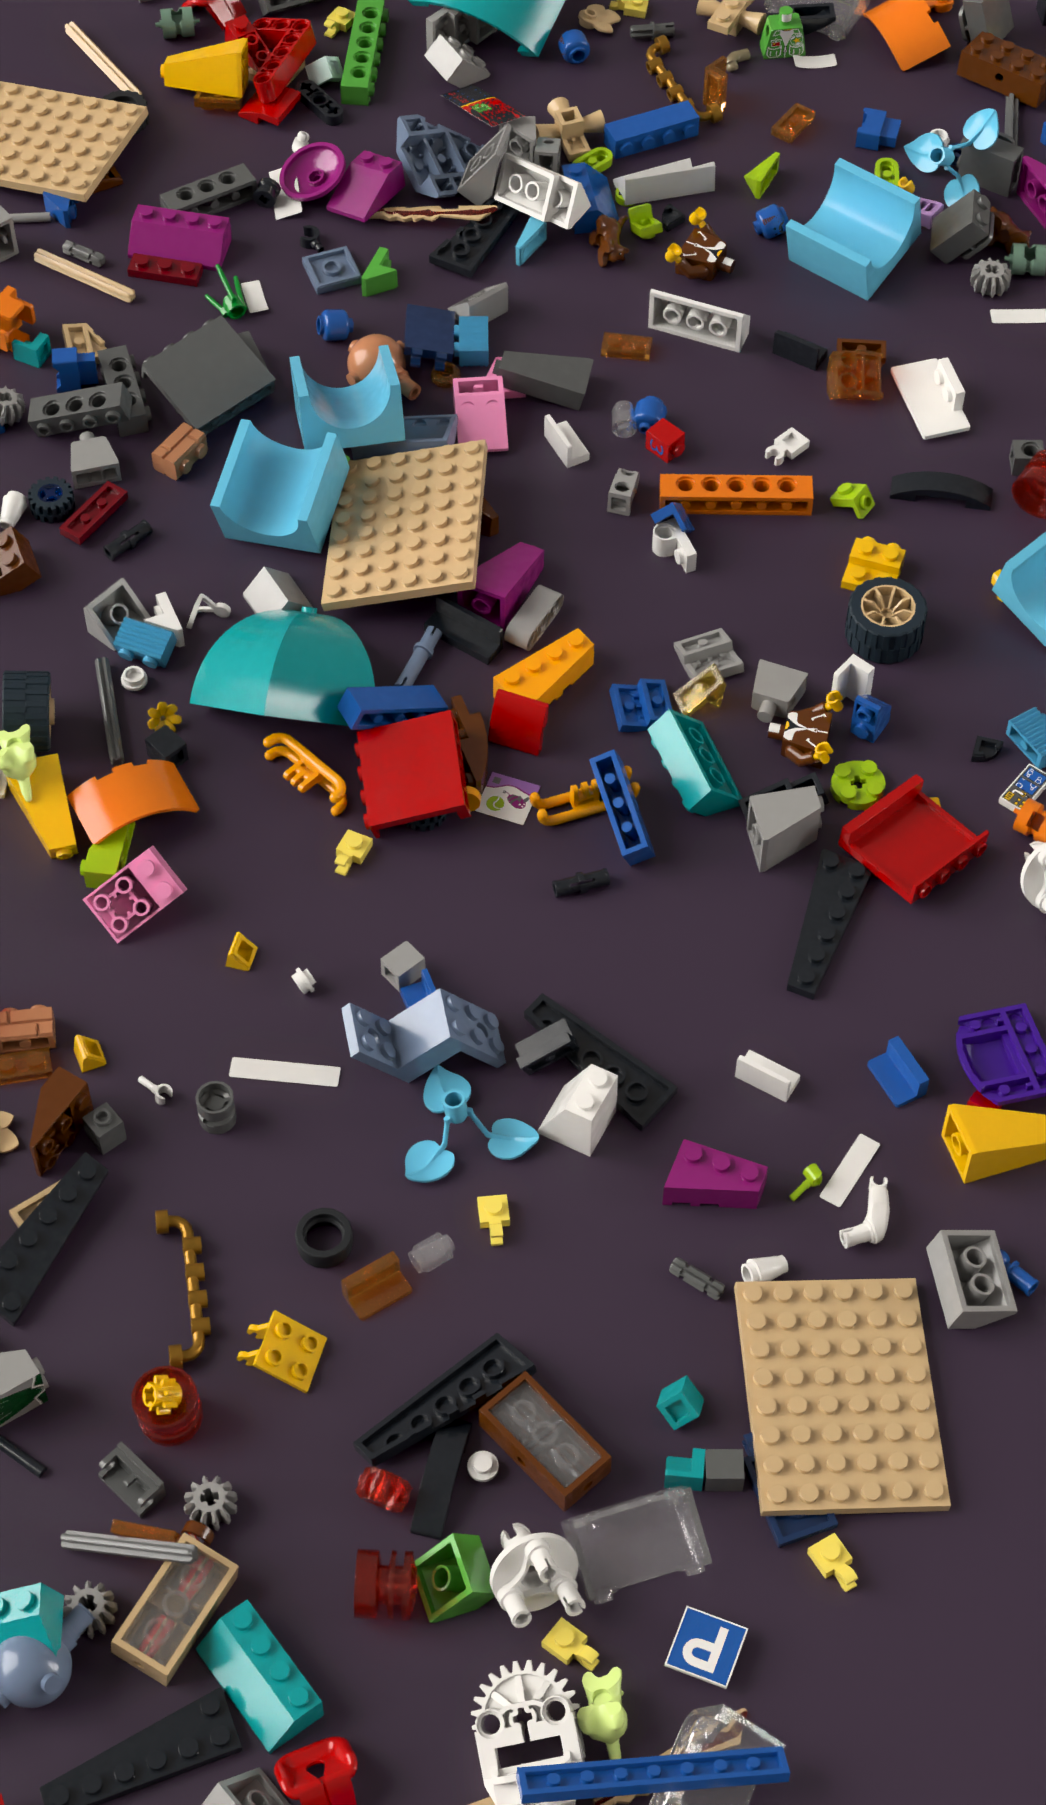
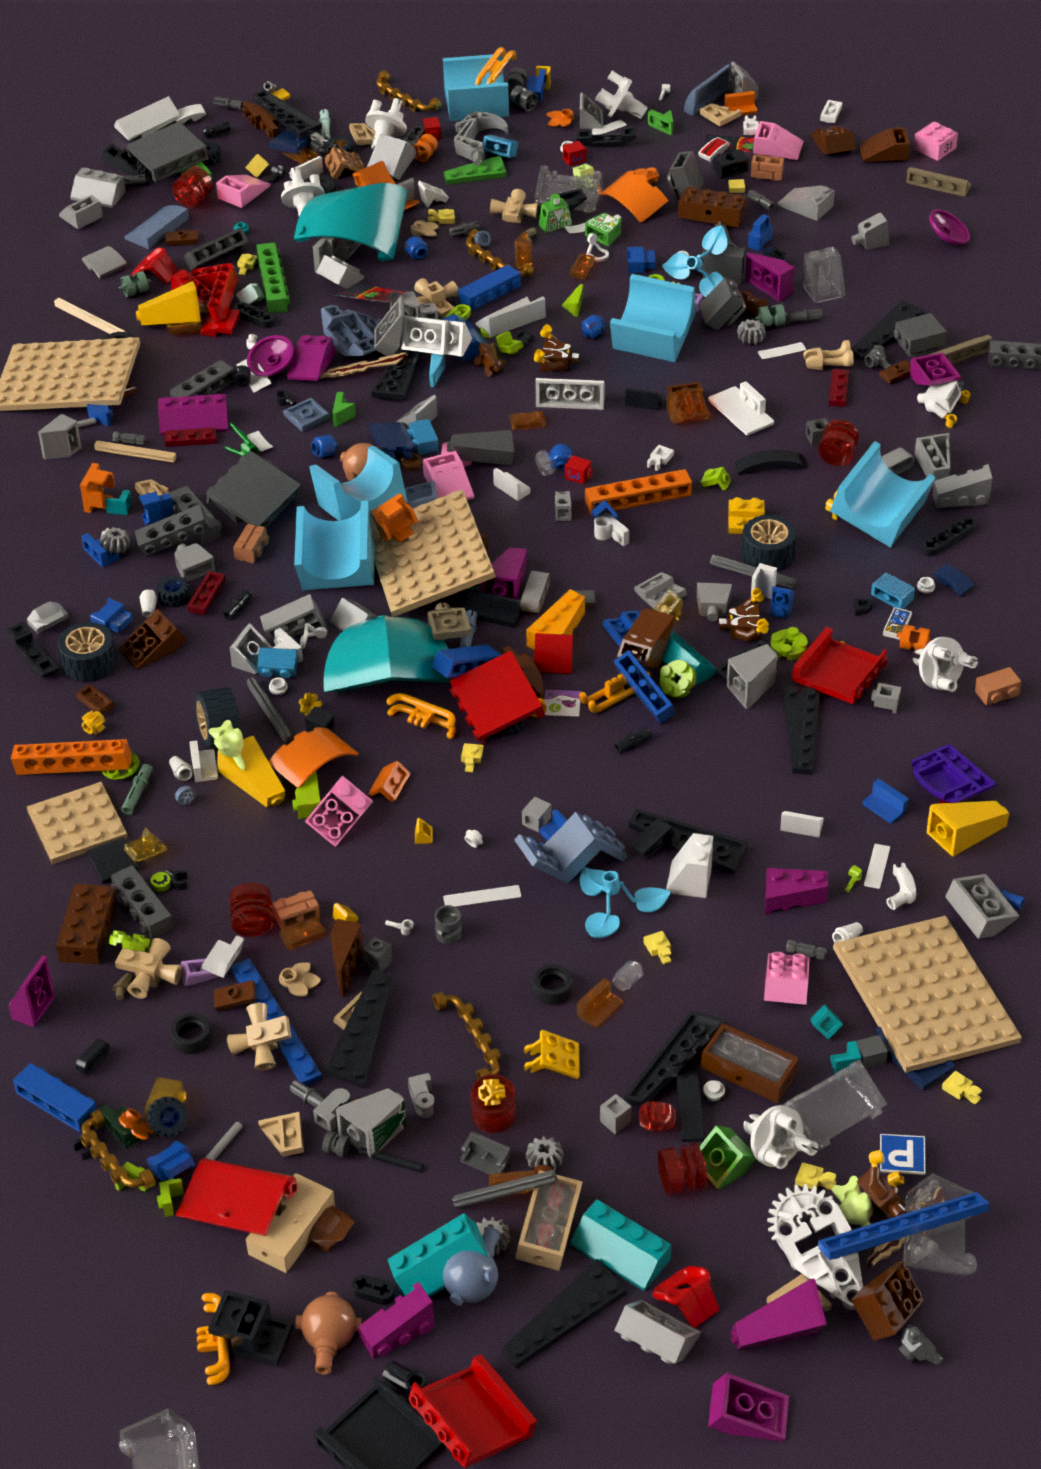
camera: 15 degrees left, 10 degrees down
(80, 1361) = (419, 1090): none -> light grey leg
(188, 579) = (293, 618): none -> light grey wedge
(227, 863) = (390, 781): none -> orange panel
(330, 1467) = (615, 1114): none -> light grey panel
(372, 465) = (394, 519): none -> orange panel
(384, 643) = (448, 622): none -> dark tan plate
(603, 643) = (589, 597): none -> dark grey tile
(650, 1704) = (879, 1190): none -> reddish brown torso
(651, 1317) = (787, 978): none -> bright pink slope
(653, 733) = (648, 637): none -> reddish brown slope
(663, 800) = (670, 672): none -> lime plate
(671, 51) = (482, 238): none -> sand blue tile
(820, 85) = (592, 238): none -> white piece
(844, 652) = (748, 570): none -> dark grey axle
(845, 70) = (605, 227): none -> bright green torso
(963, 905) = (886, 697): none -> light grey brick

